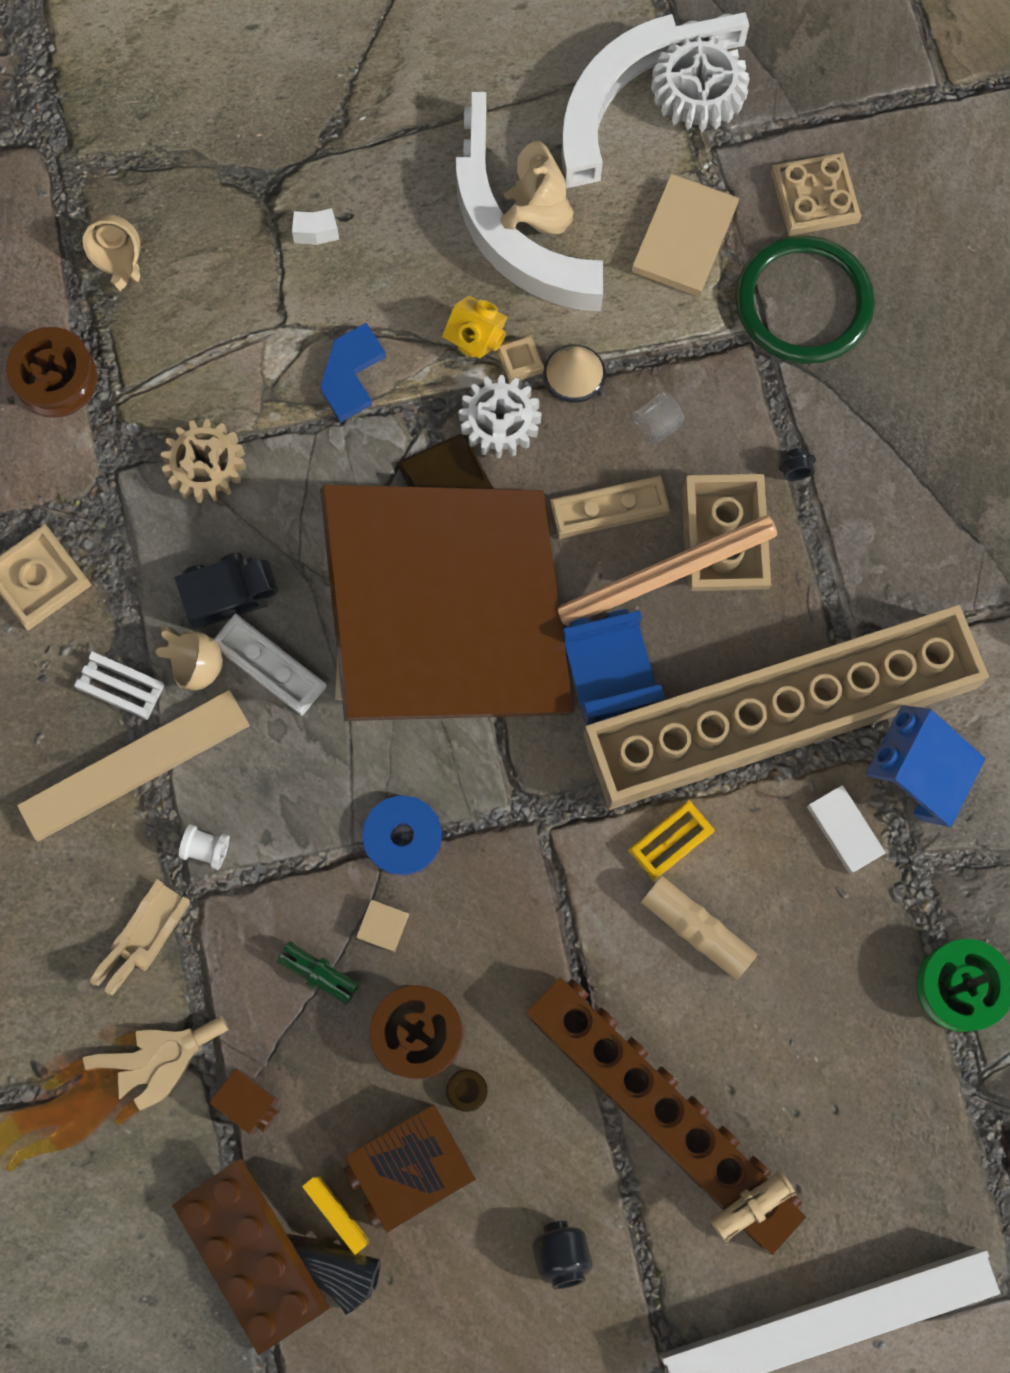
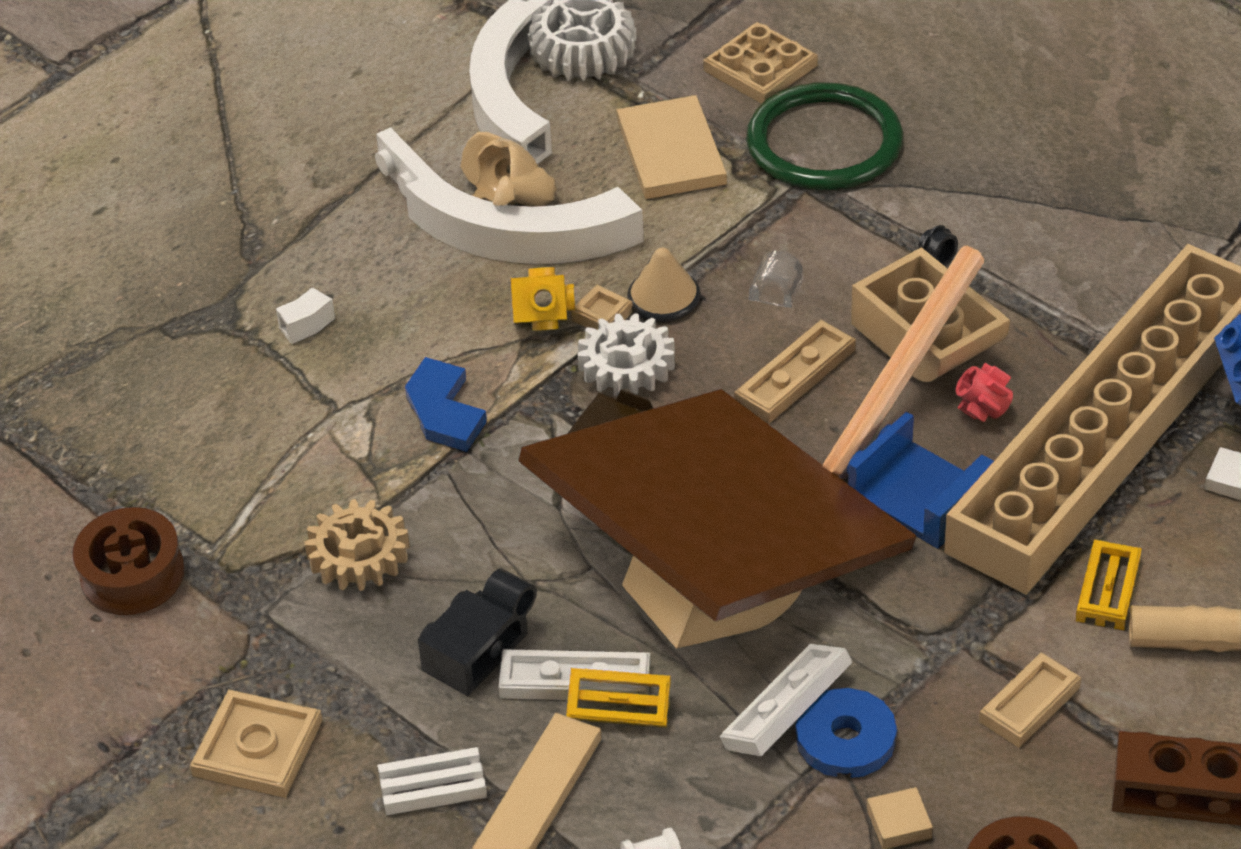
camera: 30 degrees left, 30 degrees down
(114, 248) = (111, 427): tan piece -> none
(193, 656) = (493, 705): tan piece -> none
(276, 688) = (617, 717): none -> yellow tile
(381, 784) = (785, 699): none -> white tile
(541, 895) = (1030, 699): none -> tan tile
(715, 624) = (984, 392): none -> coral gear

